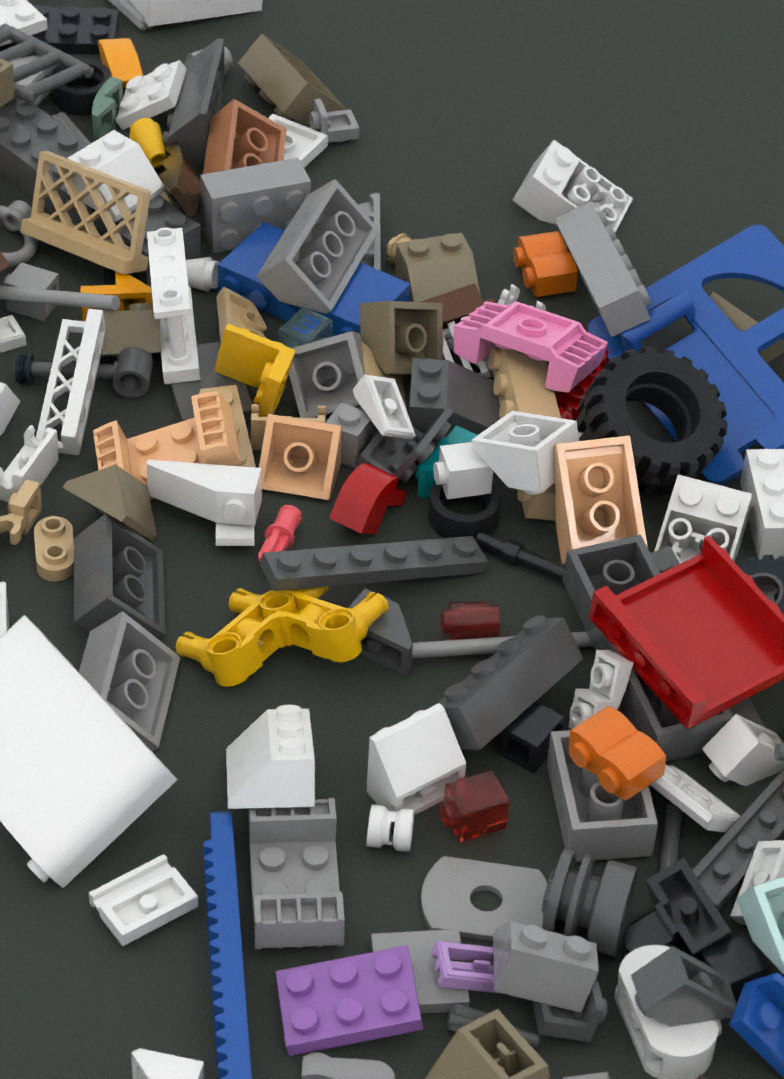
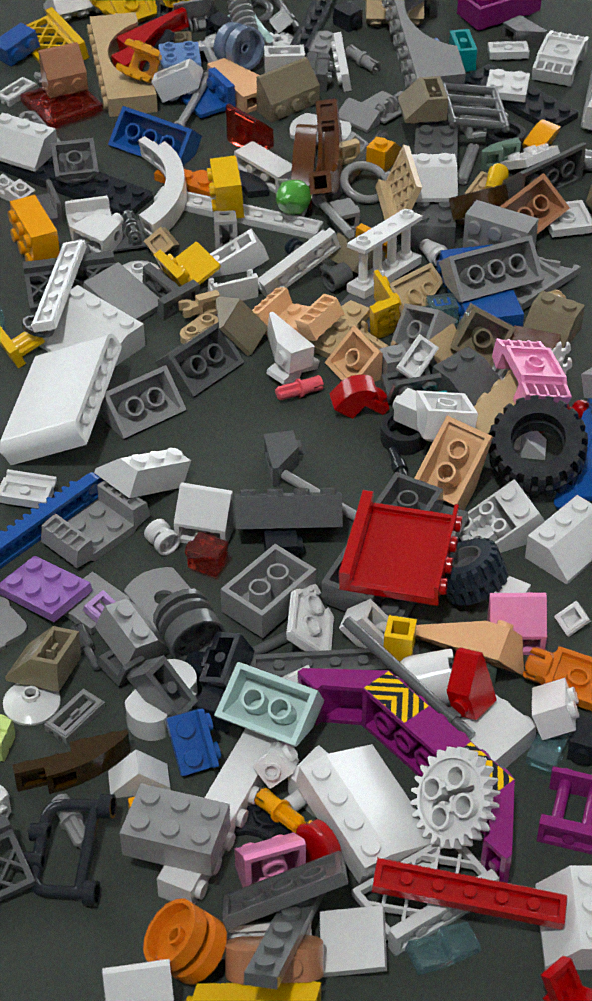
camera: 50 degrees right, 0 degrees up
(277, 621) = (240, 419): yellow pin -> none
(372, 563) = (317, 424): dark grey plate -> none
(470, 620) = (327, 477): clear red brick -> none
(606, 687) = (328, 550): white slope -> none
(616, 753) = (278, 569): orange brick -> none

